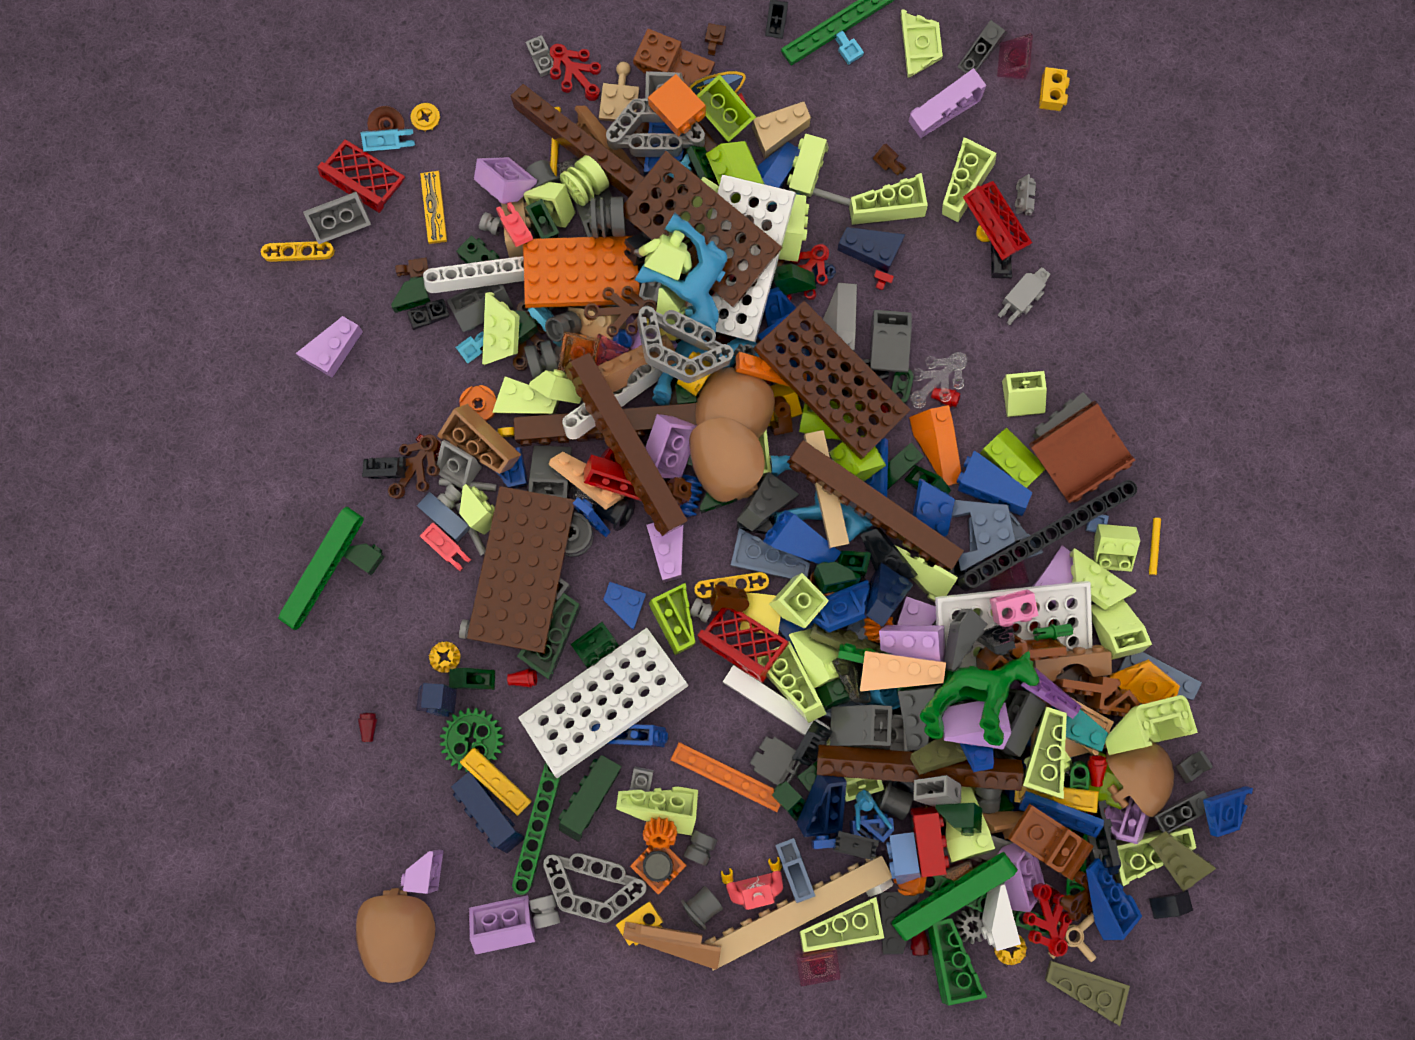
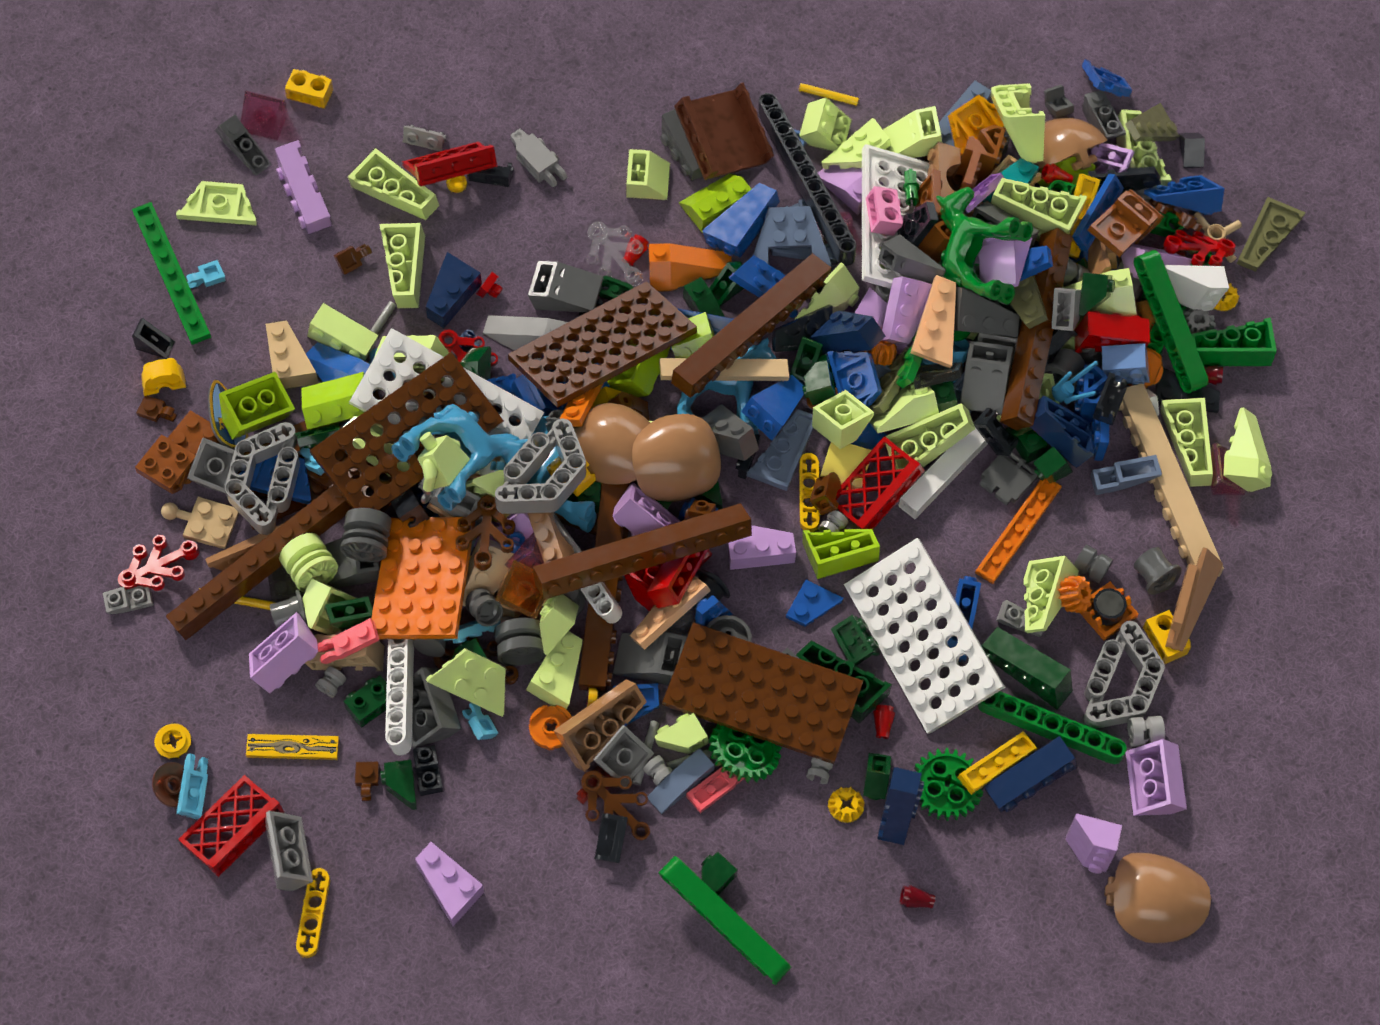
camera: 85 degrees left, 15 degrees down
(459, 563) = (742, 754): none -> green gear
(677, 105) = (249, 440): orange brick -> none
(745, 35) = (162, 374): none -> yellow cylinder
(756, 890) = (1144, 516): coral torso -> none
(835, 986) = (1247, 459): none -> yellowish green wedge

